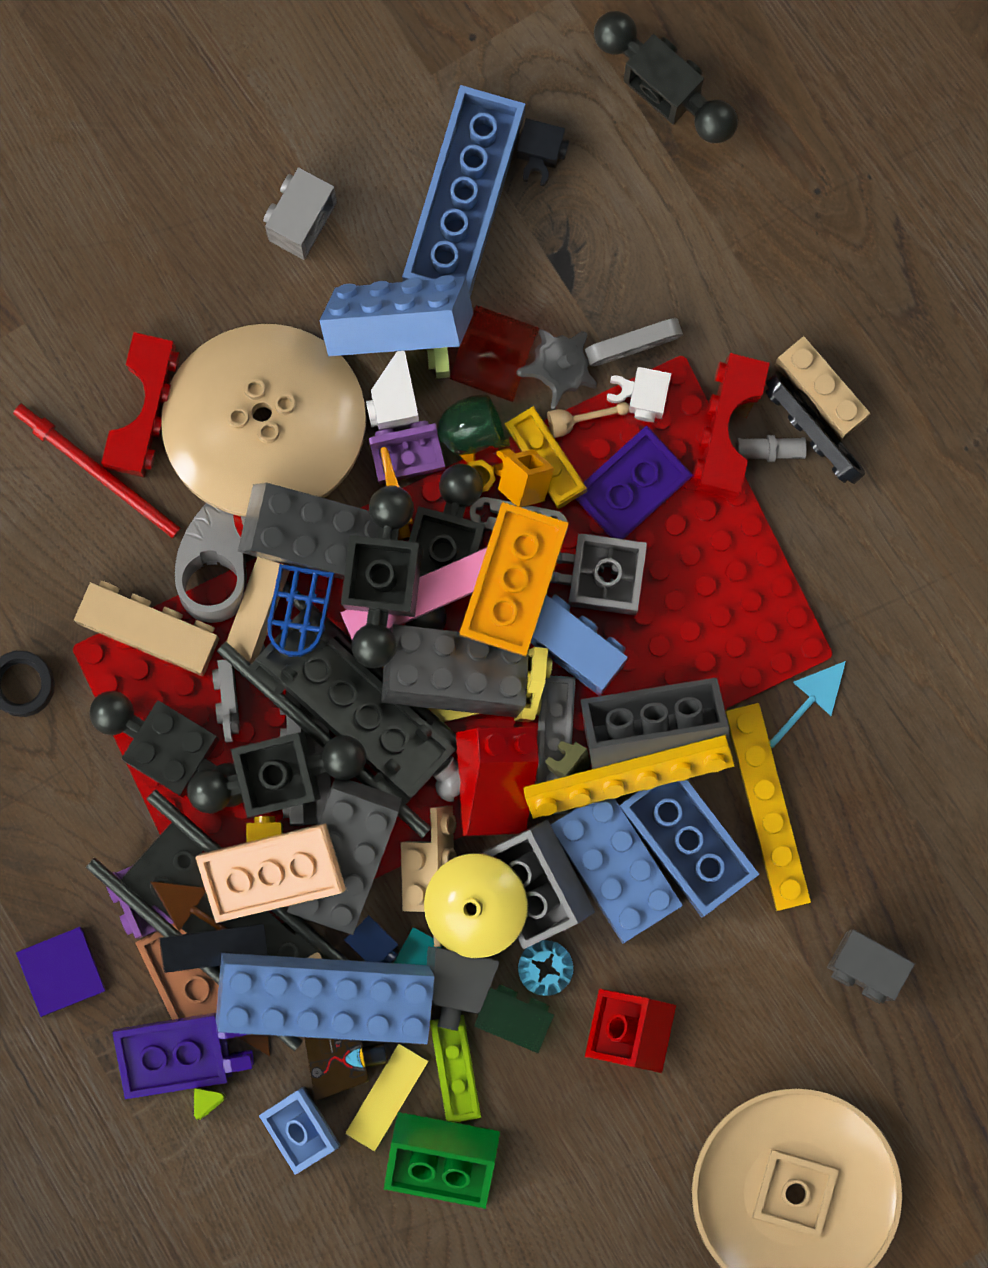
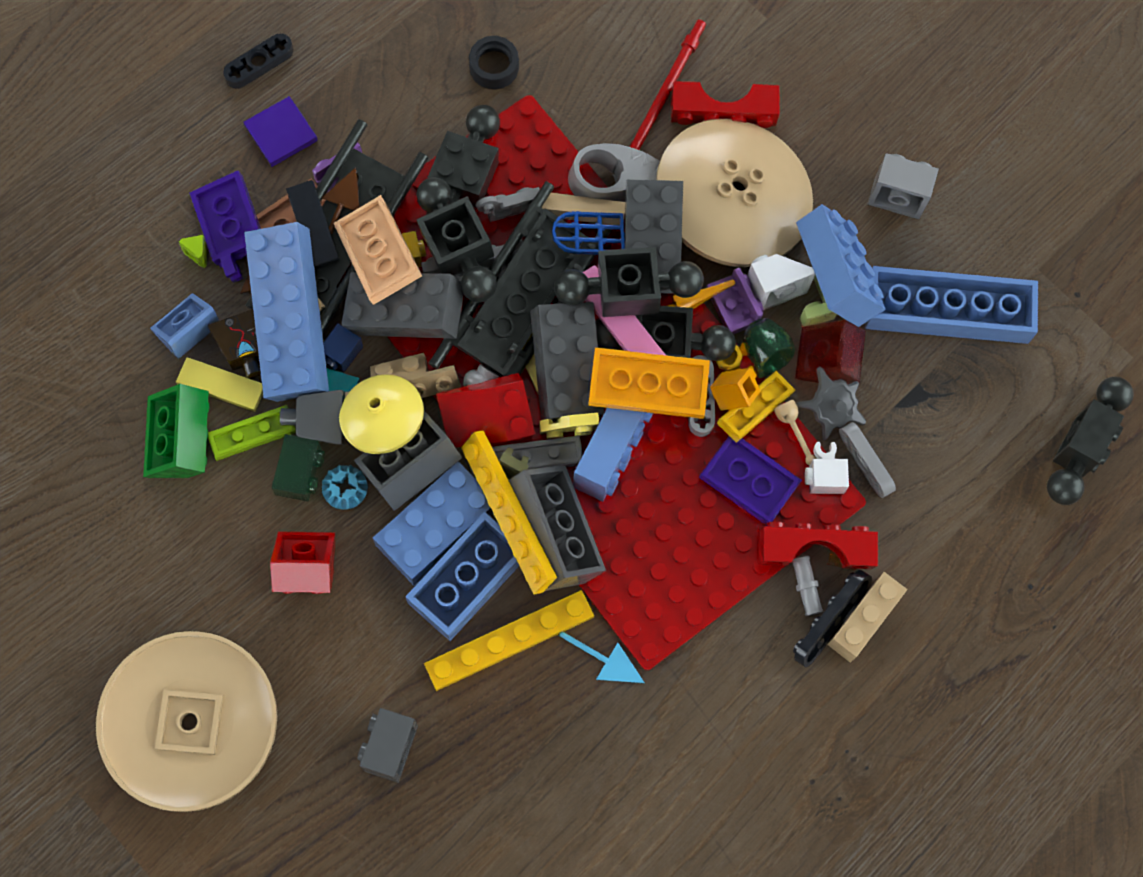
camera: 75 degrees right, 10 degrees down
(147, 629) = (553, 135): tan brick -> none
(542, 147) = (1005, 357): black brick -> none
(588, 589) = (679, 451): light grey hinge -> none

